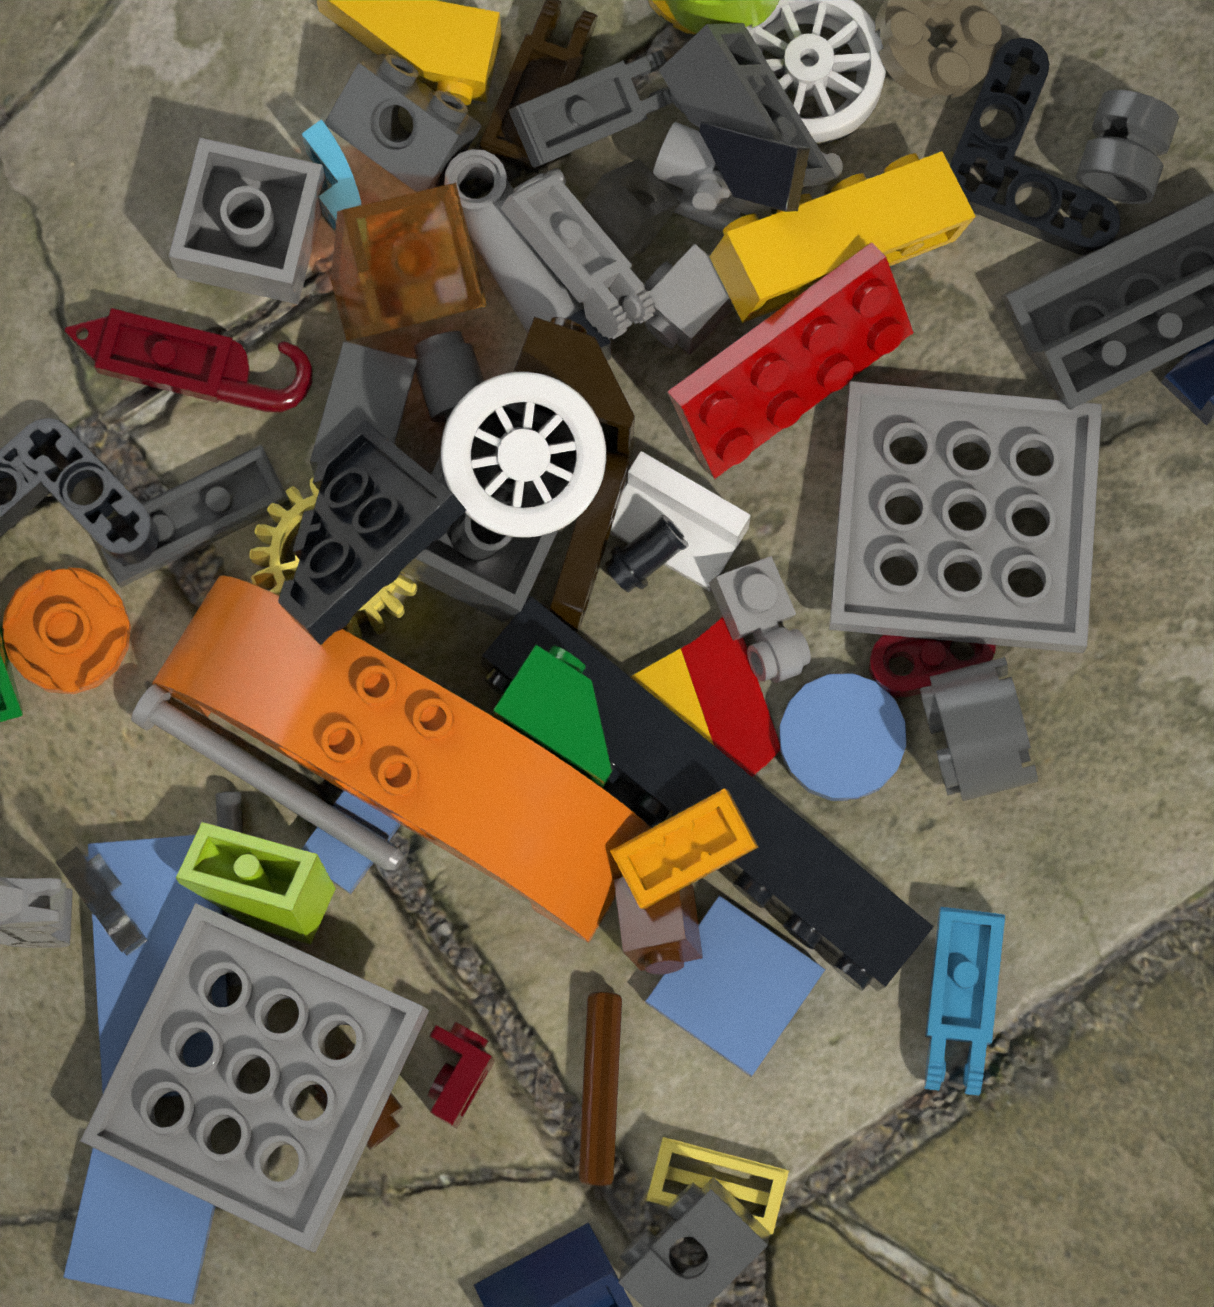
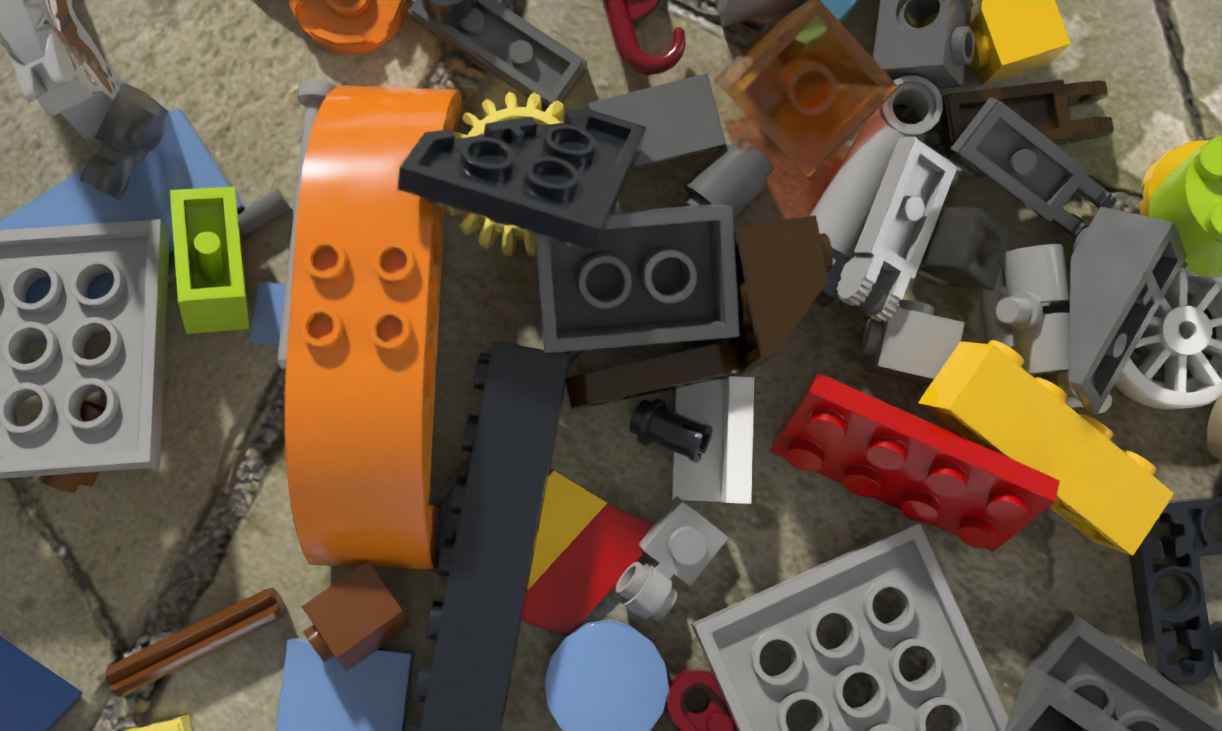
camera: 60 degrees right, 5 degrees up
(457, 1086) = (153, 520): dark red bracket -> none
(523, 454) = (681, 274): white wheel -> none
(558, 711) = (468, 436): green slope -> none
(684, 848) = (414, 614): light orange plate -> none
(757, 165) = (1071, 340): black tile -> none

